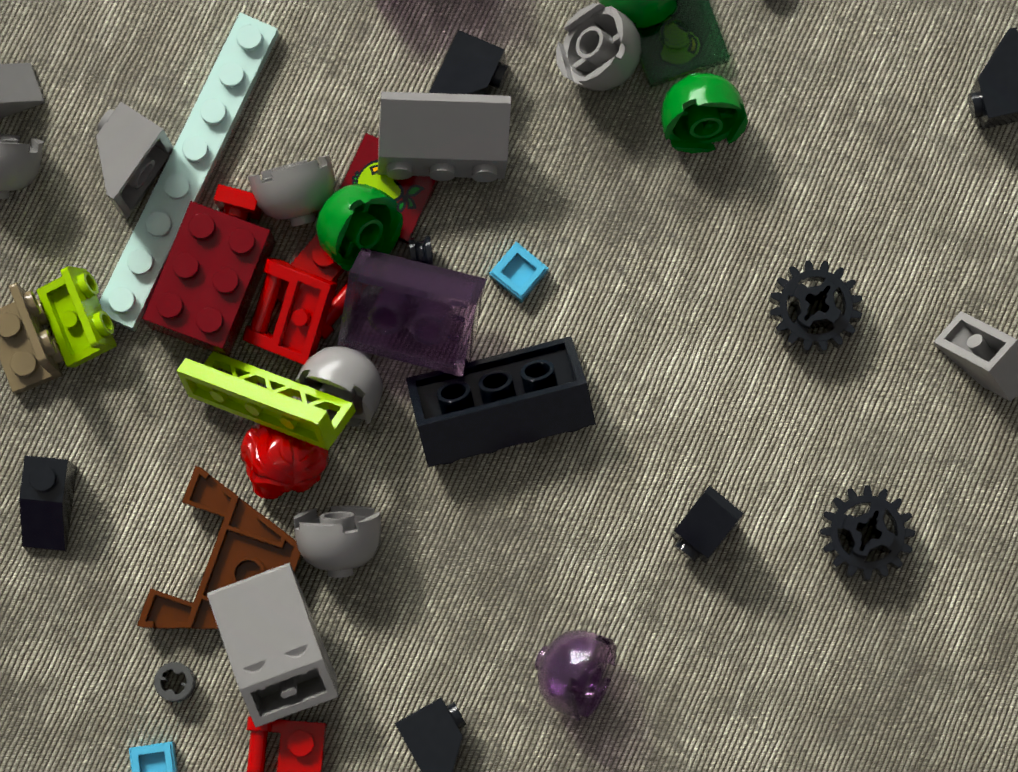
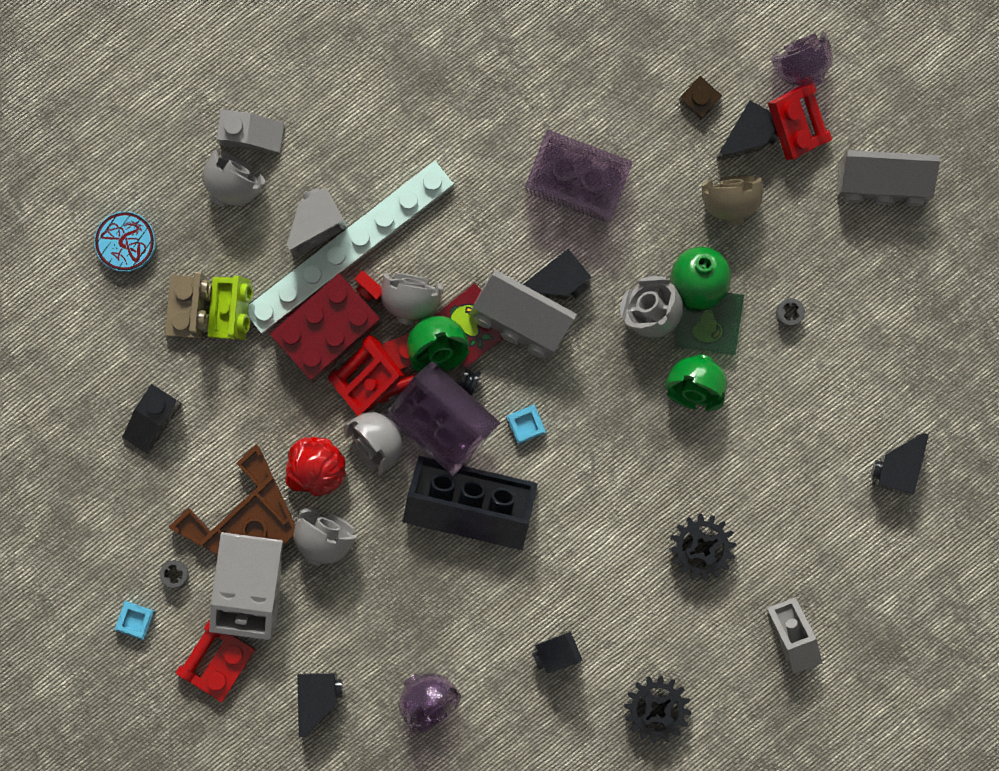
camera: 20 degrees right, 5 degrees up
(264, 405) = (320, 432): lime fence -> none

